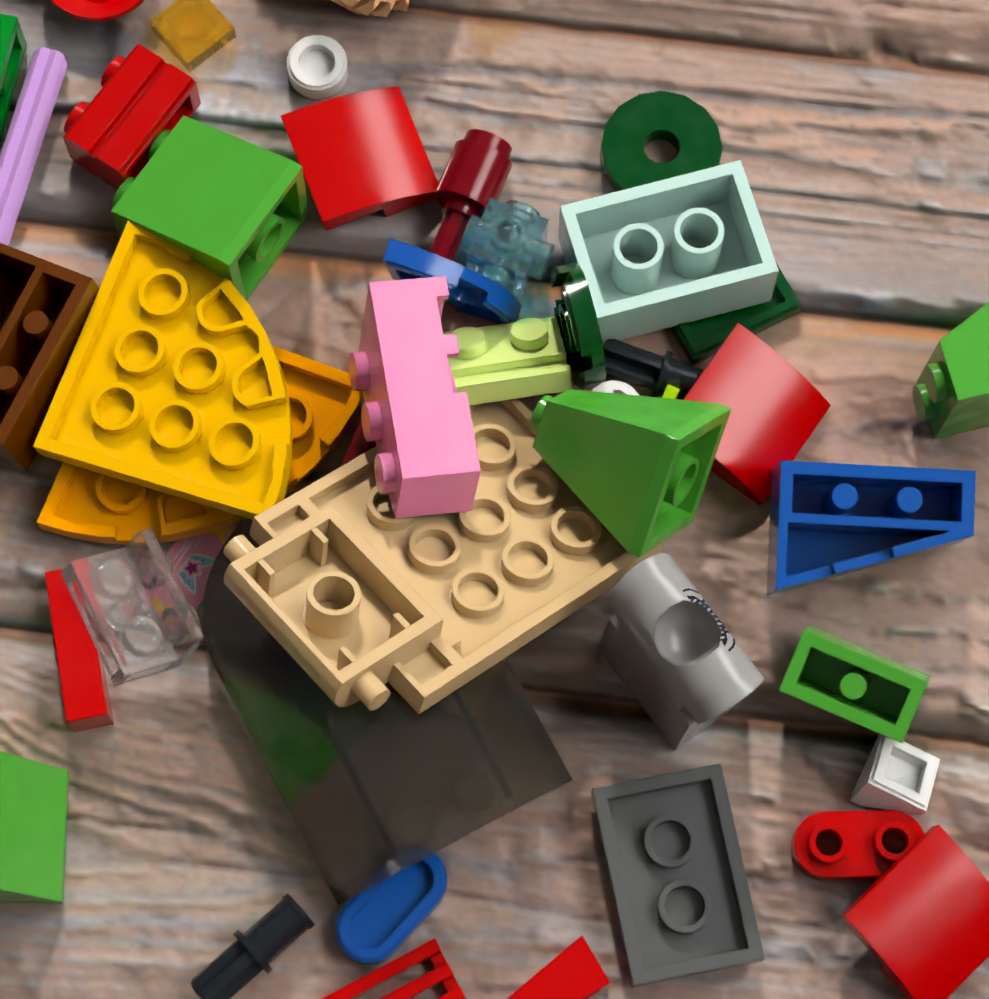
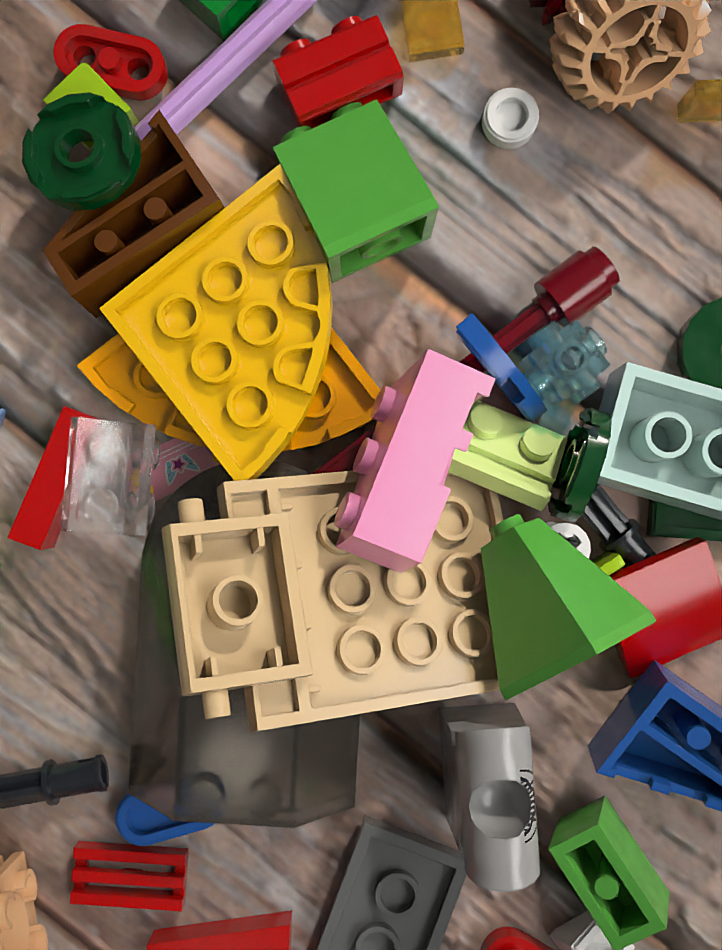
camera: 40 degrees right, 15 degrees up
(361, 155) = (498, 214): red slope -> none

